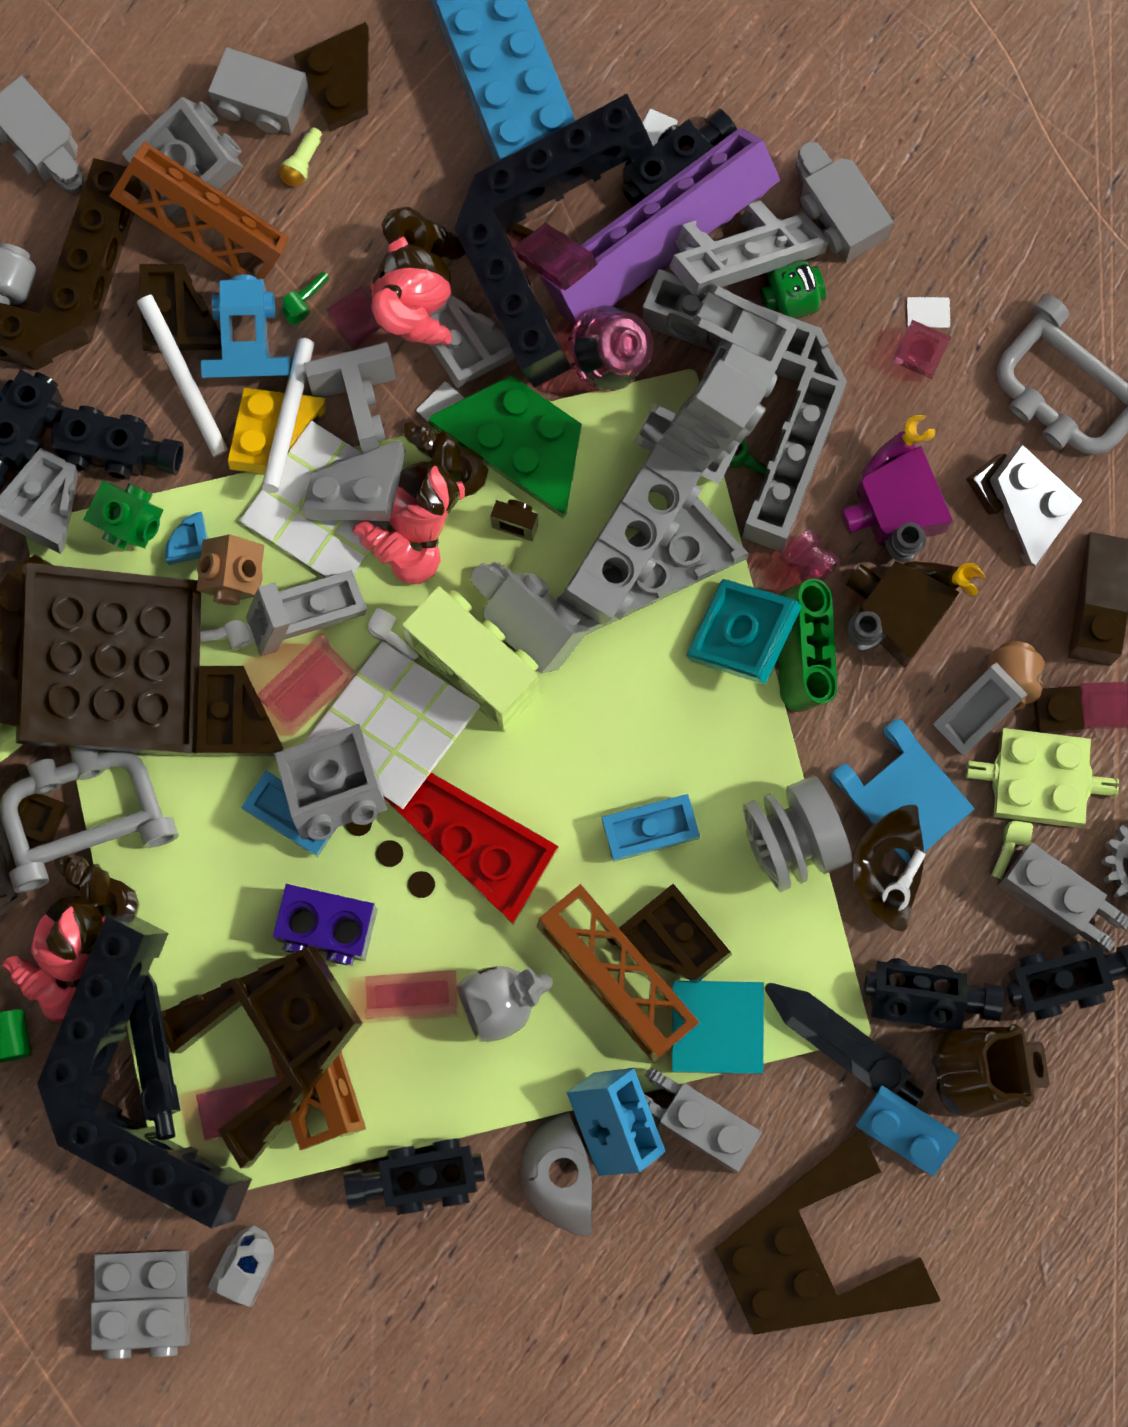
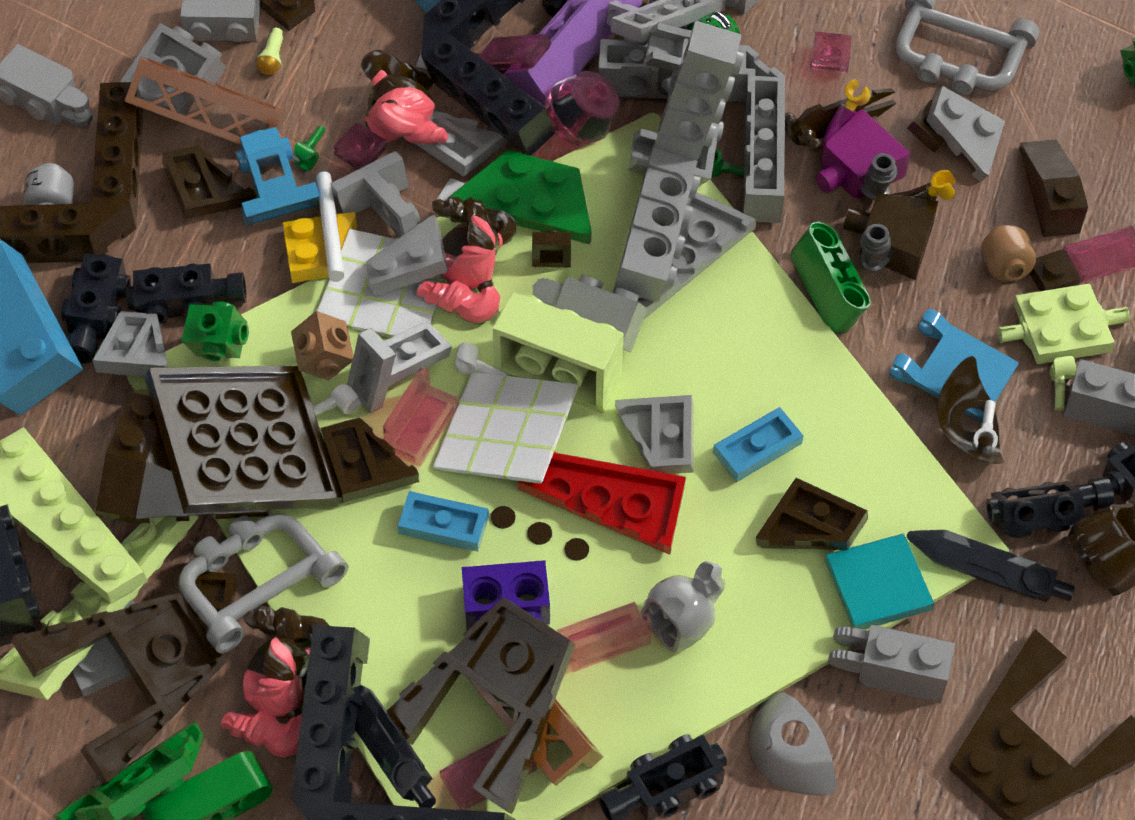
camera: 20 degrees left, 20 degrees down
(182, 375) = (228, 224): white bar -> none
(186, 540) = (275, 343): dark azure tile -> none
(330, 783) = (473, 477): light grey plate -> none
(554, 780) = (661, 431): none -> light grey wing
(604, 985) = (774, 574): dark orange fence -> none
(616, 1122) = (844, 681): dark azure brick -> none
(744, 631) = (775, 275): teal tile -> none
(794, 834) = (885, 403): light grey wheel -> none
(810, 559) = (801, 214): clear pink wheel -> none
(865, 440) = (815, 120): none -> dark brown piece
(907, 1130) = (1074, 617): dark azure plate -> none
(929, 311) = (828, 25): white sticker -> none
(980, 709) = (992, 281): light grey tile -> none

